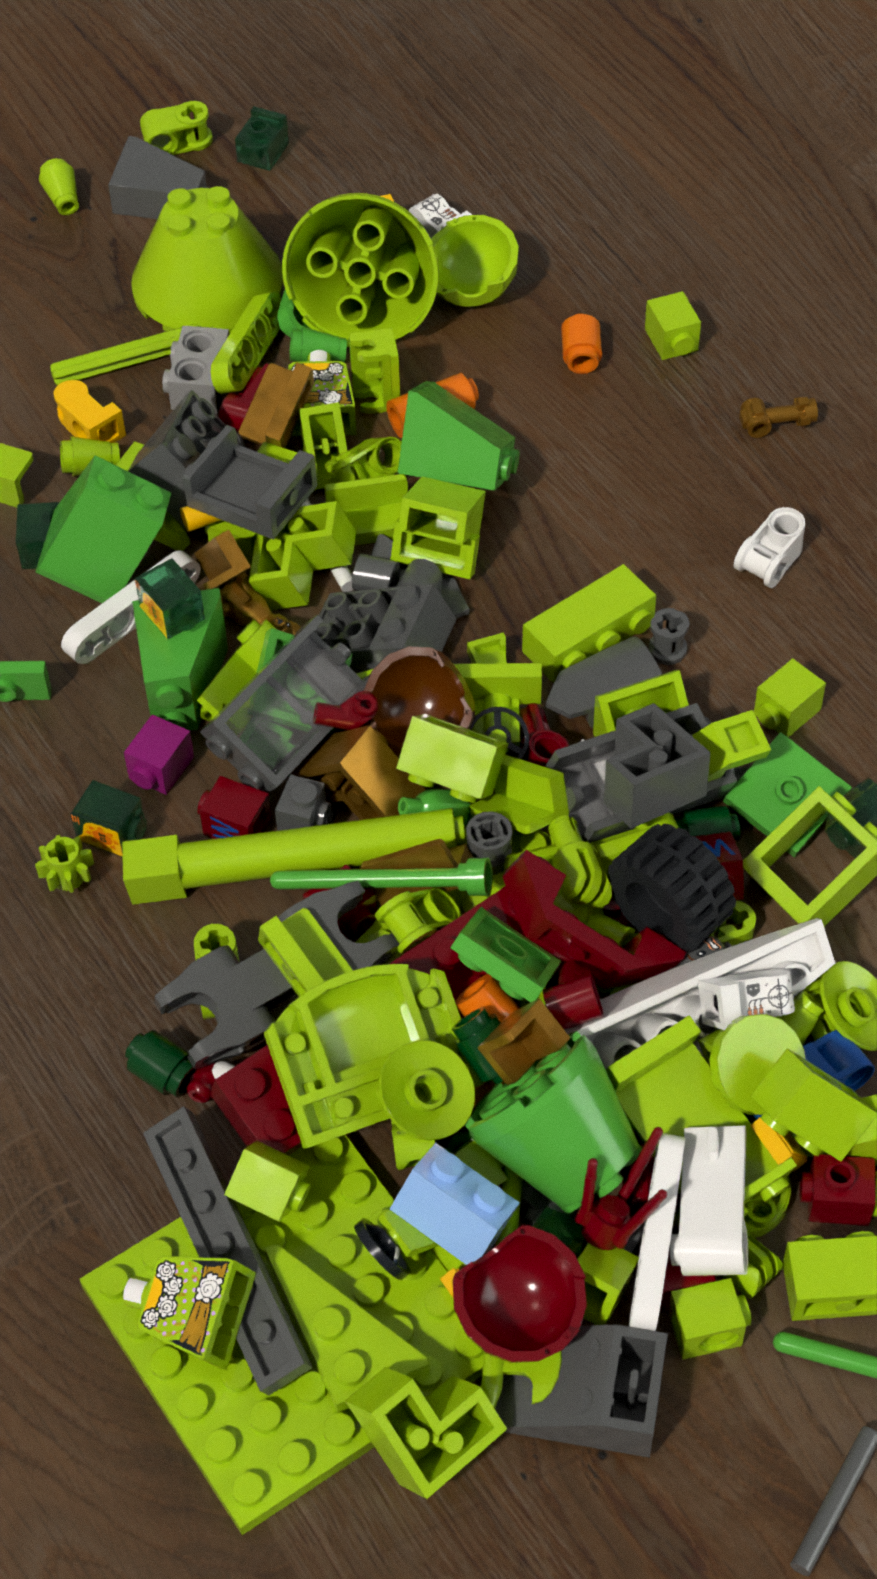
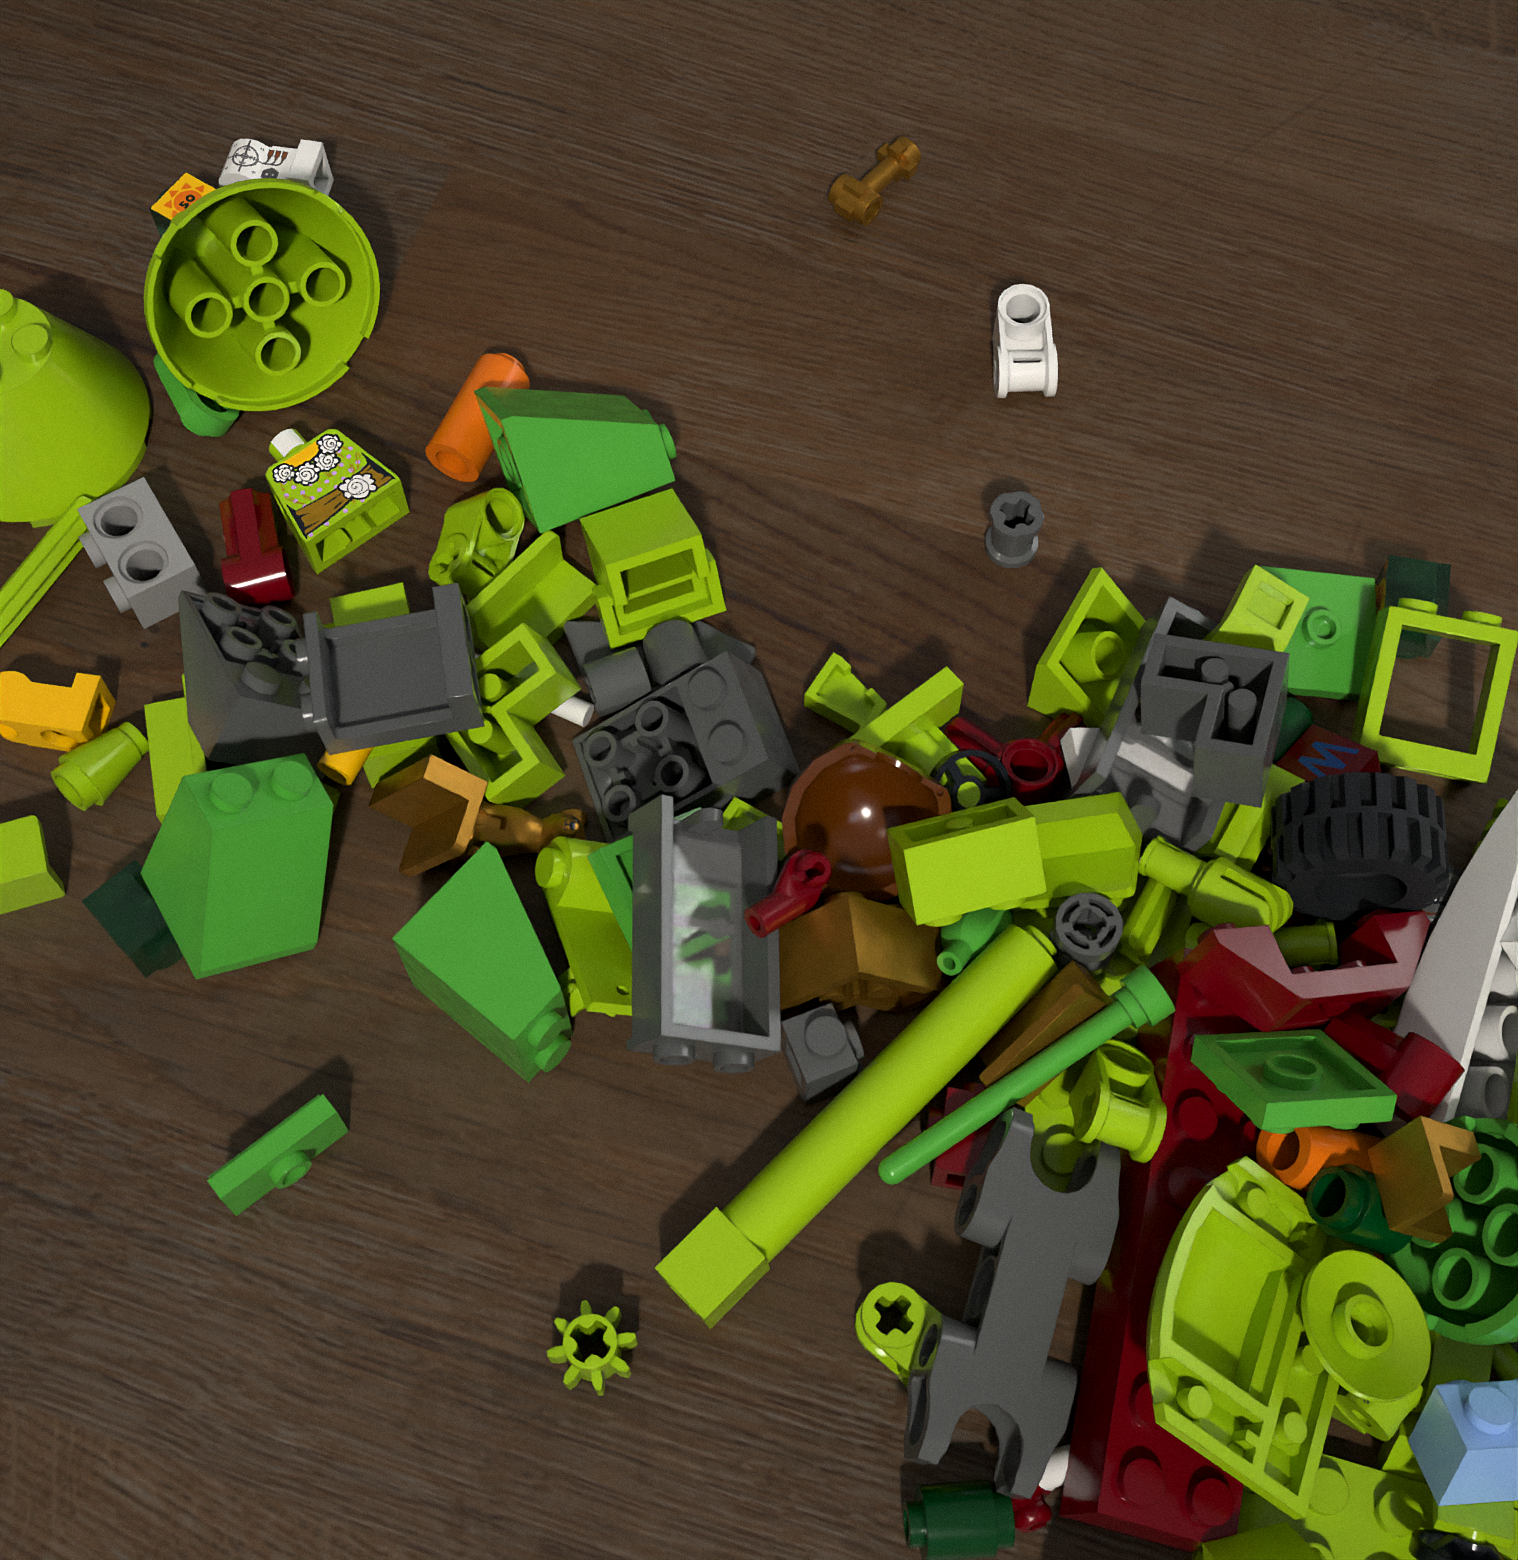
camera: 40 degrees left, 10 degrees up
(101, 630) = (349, 936): white beam -> none
(108, 817) = (593, 1242): clear green brick -> none
(158, 755) = (573, 1110): magenta brick -> none
(170, 598) = (456, 905): clear green brick -> none
(233, 809) = (737, 1117): dark red brick -> none
(246, 344) = (180, 480): lime beam -> none
(276, 404) = (307, 540): pearl gold panel -> none
(302, 951) = (1060, 1262): lime panel -> none
(309, 340) = (252, 430): bright green cone -> none
(323, 437) = (393, 548): lime slope -> none
(374, 368) = (384, 409): lime hinge -> none
(475, 260) = (381, 185): lime cylinder -> none
(581, 343) = (580, 227): orange brick -> none
(589, 621) = (916, 575): lime brick -> none
(605, 671) = (1004, 630): dark grey panel -> none
(672, 325) = (665, 143): lime brick -> none
(789, 698) = (1207, 516): lime brick -> none

